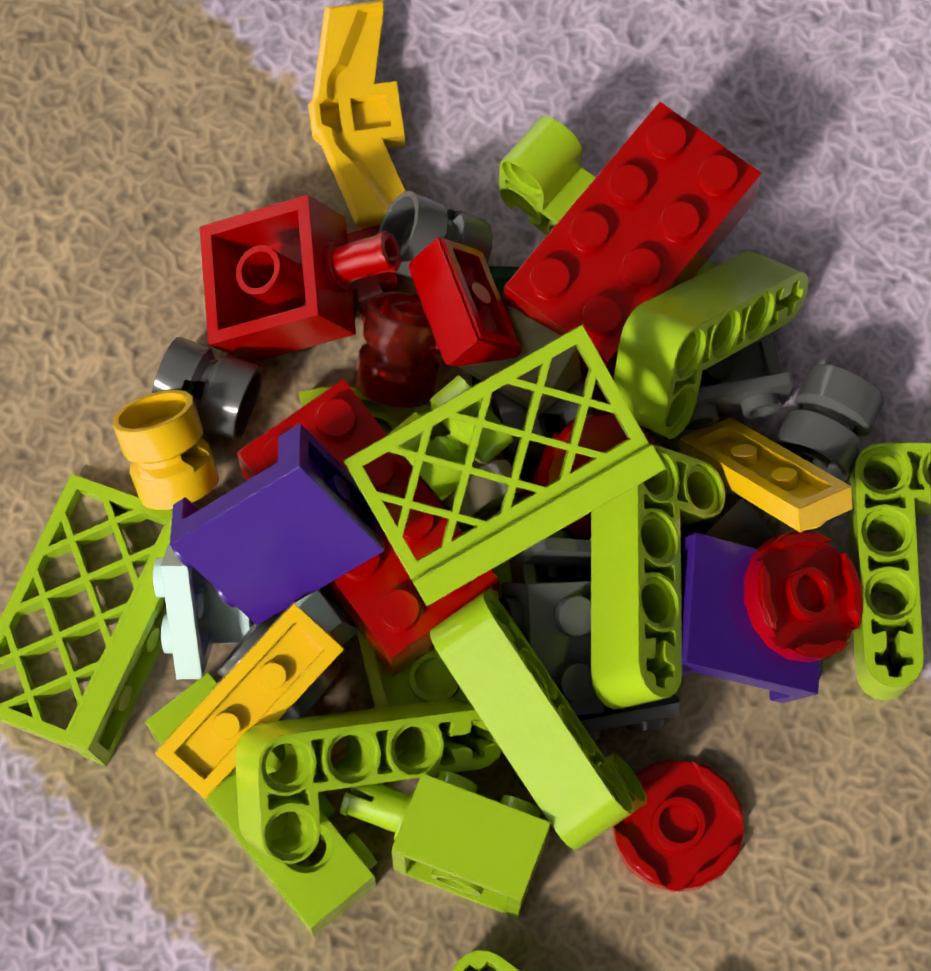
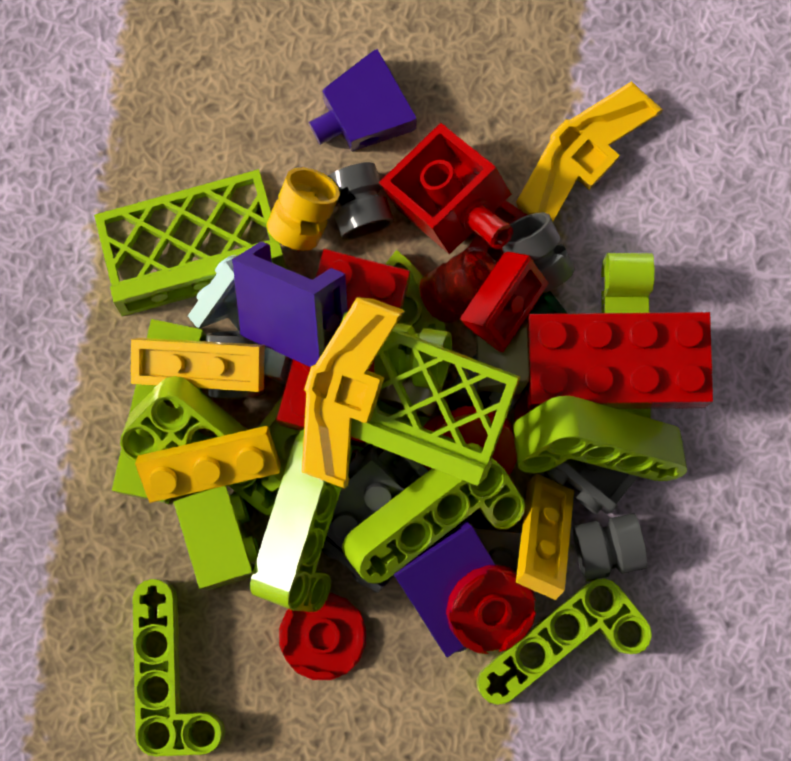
camera: 55 degrees right, 10 degrees up
(105, 300) = (364, 106): none -> dark purple torso
(381, 773) = (208, 464): none -> yellow plate
(431, 528) = (344, 389): none -> yellow plate

